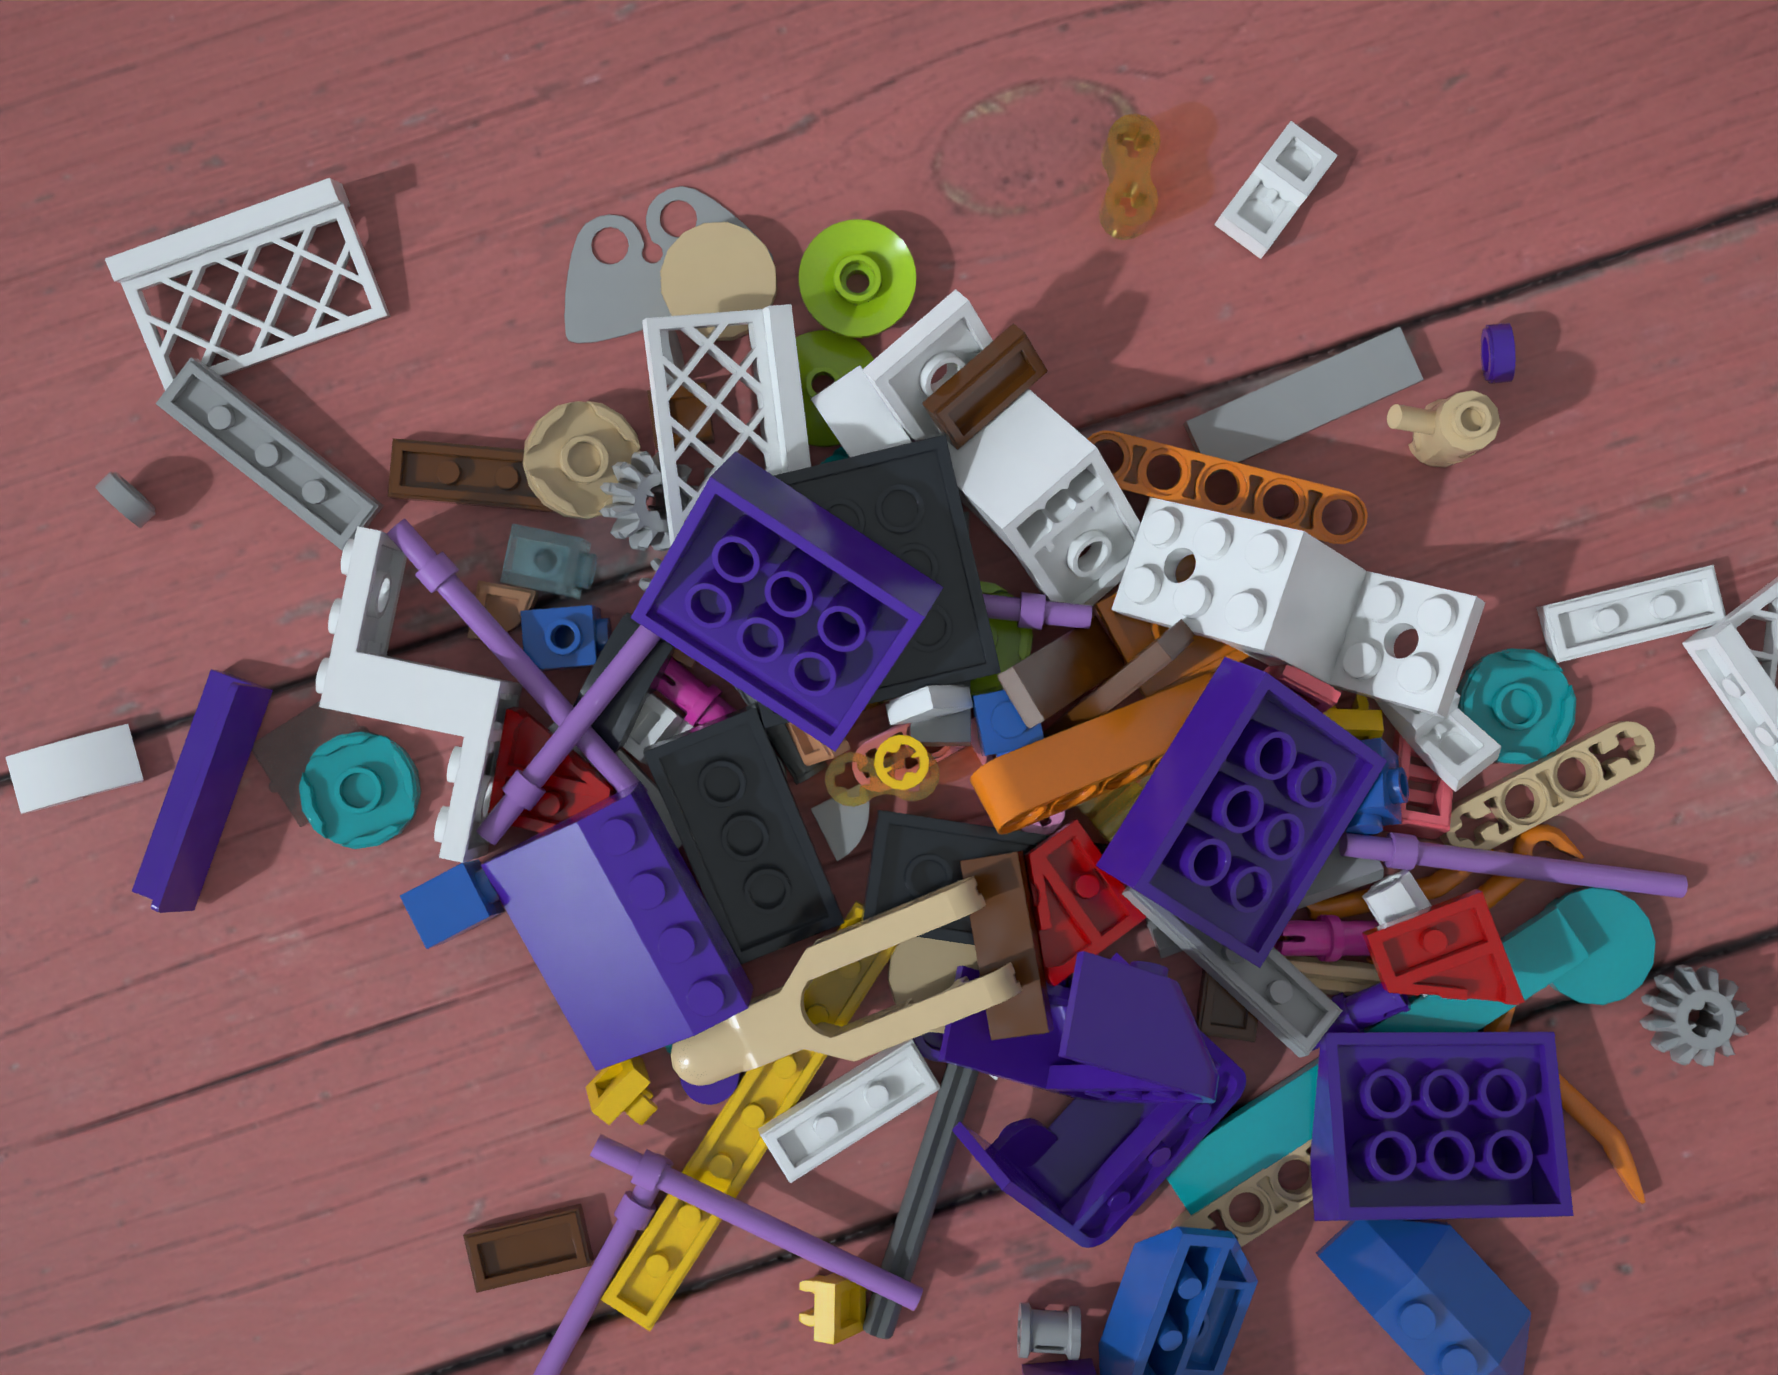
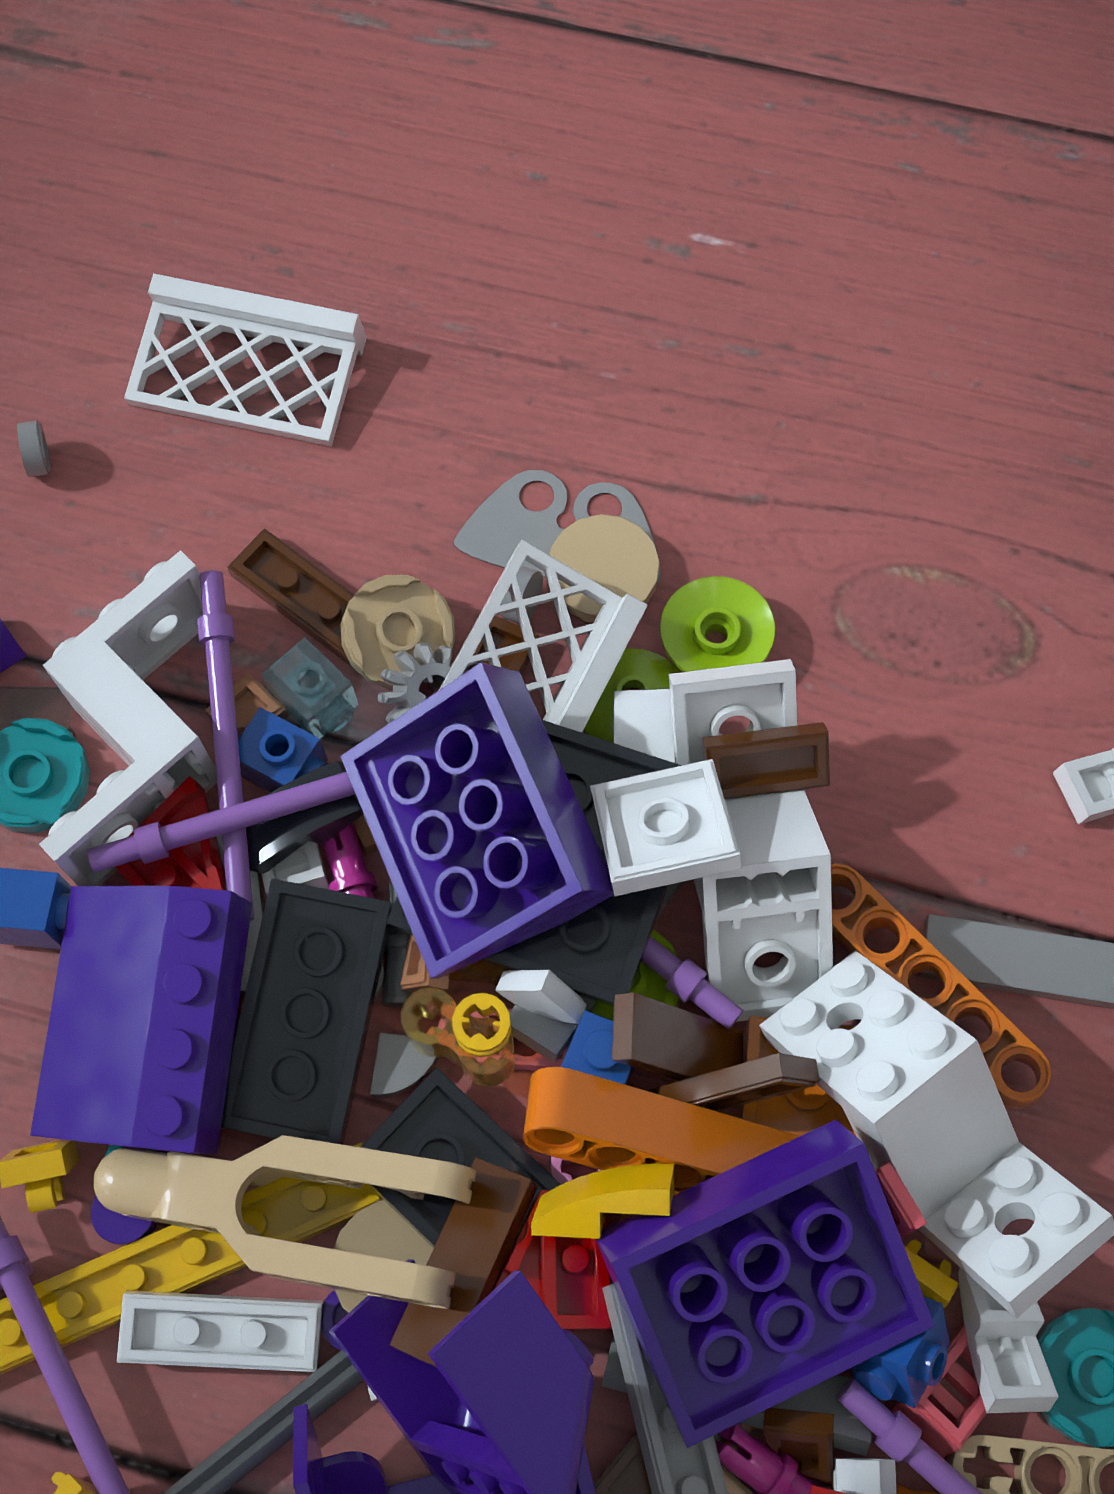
camera: 40 degrees right, 20 degrees down
(268, 453) = (162, 475): light grey tile -> none
(946, 509) = (665, 827): none -> white tile
(1072, 848) = (582, 1204): none -> yellow slope
(1129, 176) = (999, 686): clear yellow axle -> none
(1334, 898) = (804, 1437): none -> reddish brown tile

